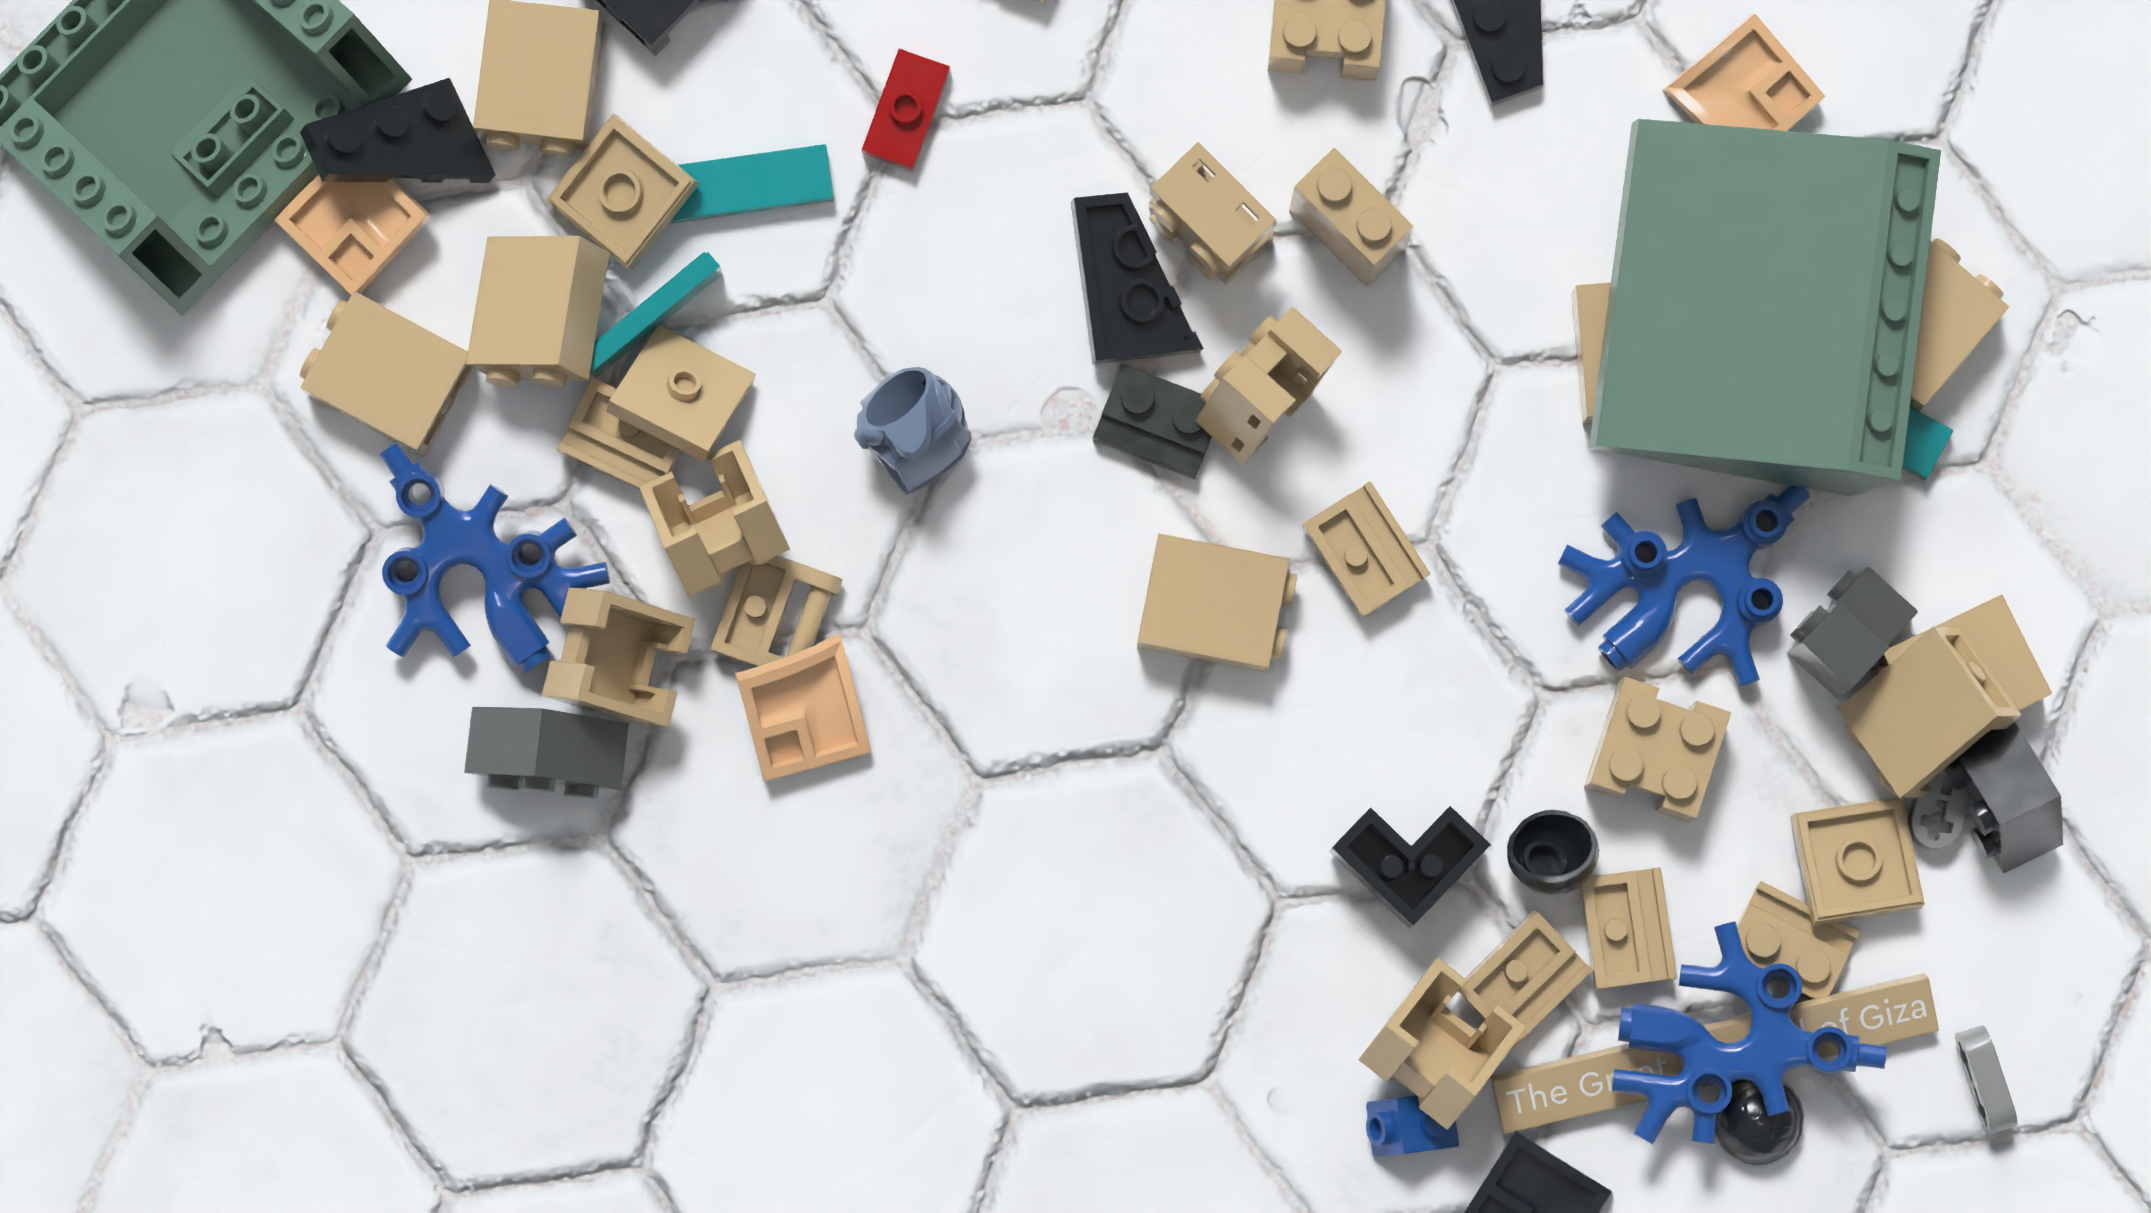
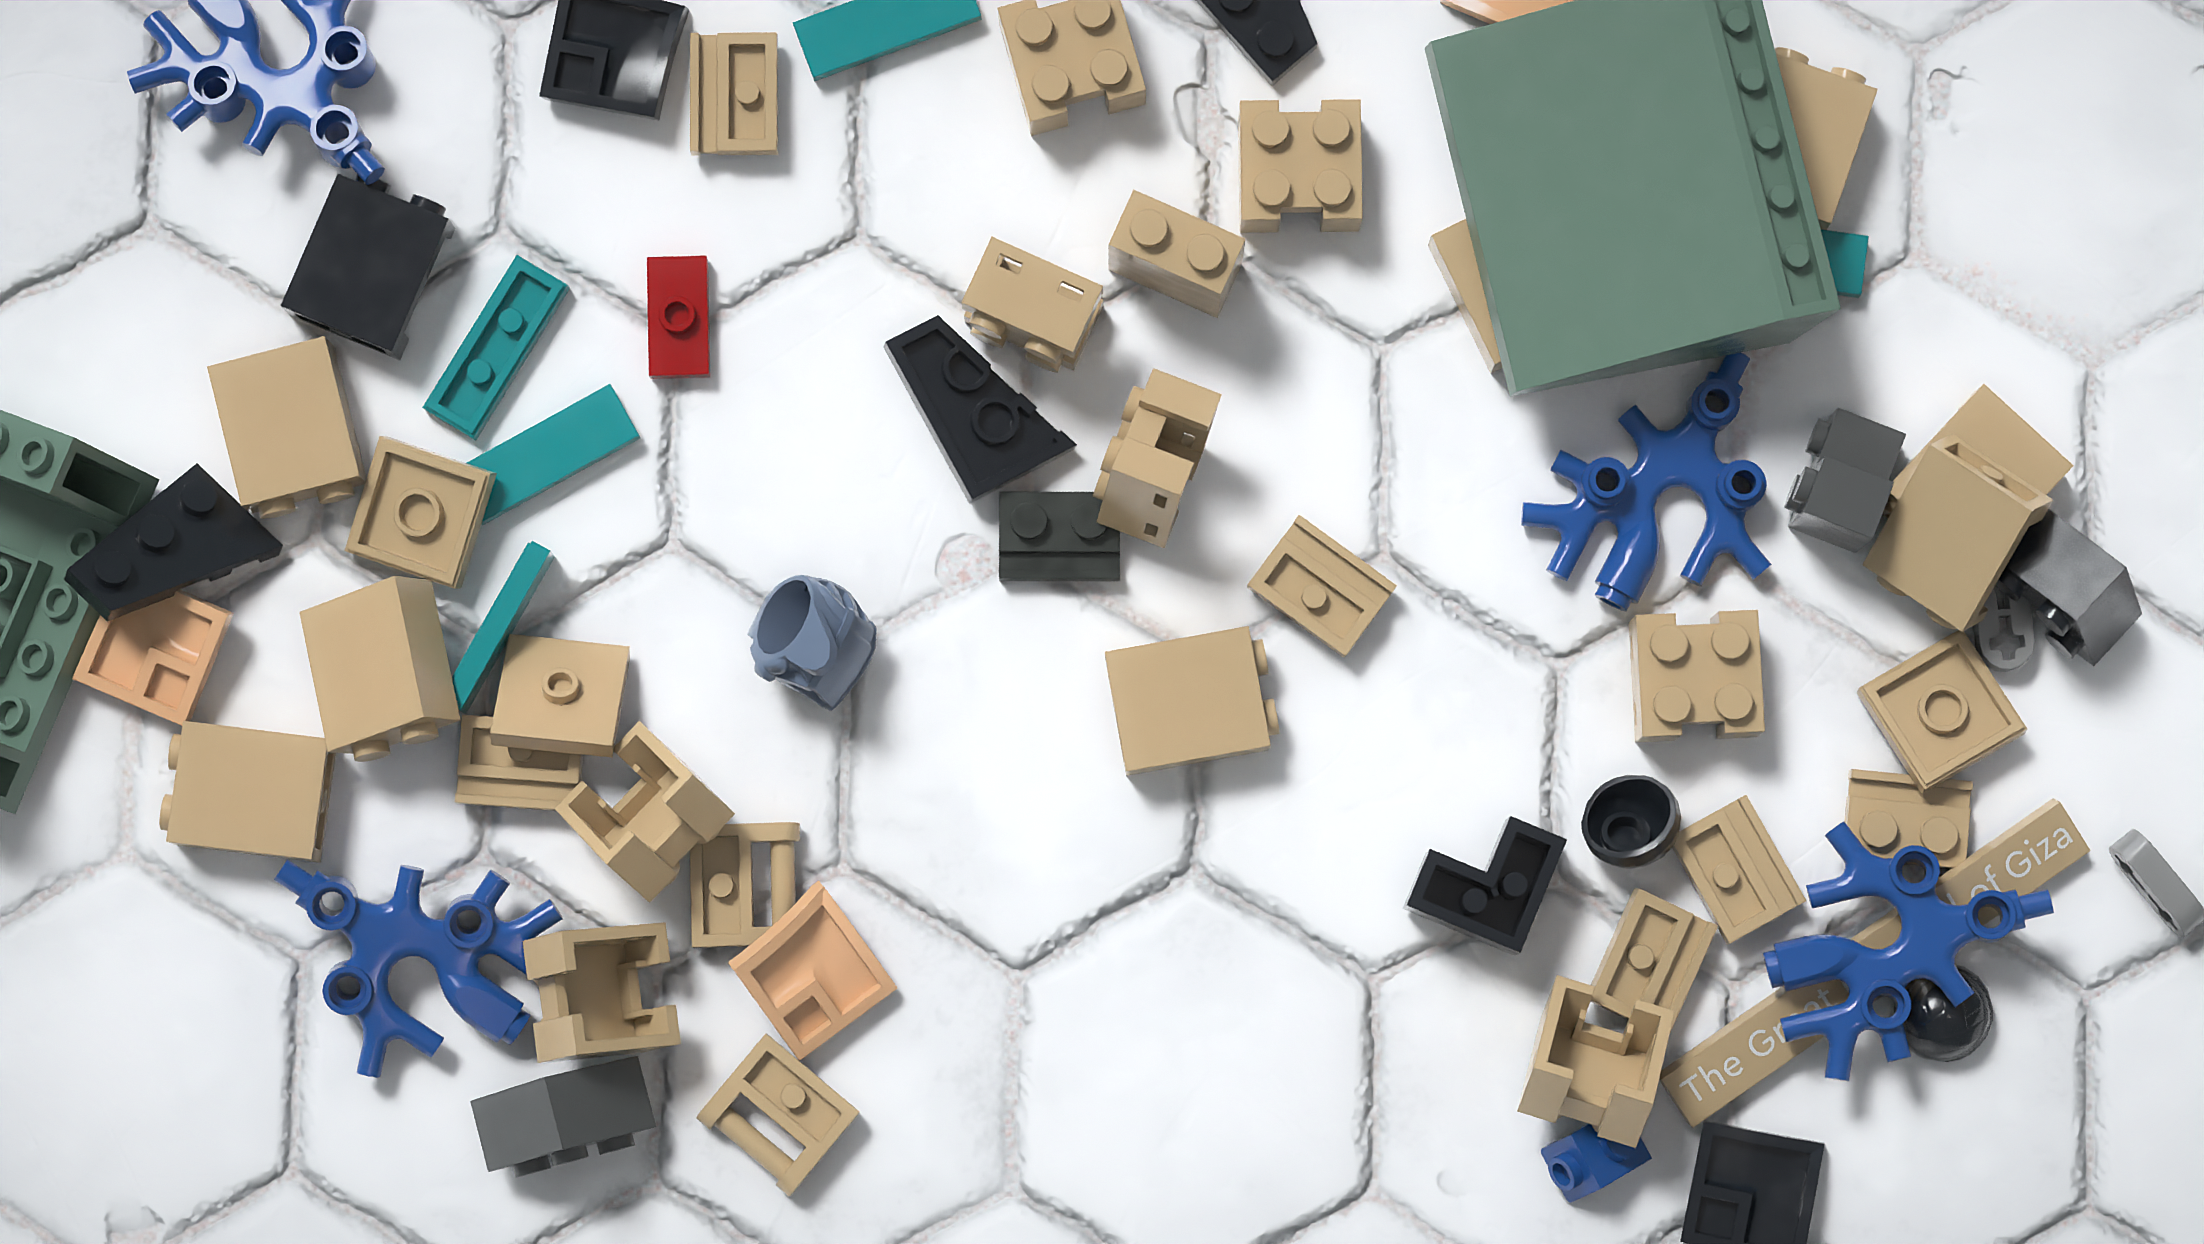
camera: 20 degrees left, 0 degrees up
(741, 76) = (496, 347): none -> teal tile
(745, 811) = (791, 1098): none -> tan plate
(1487, 182) = (1300, 165): none -> tan piece

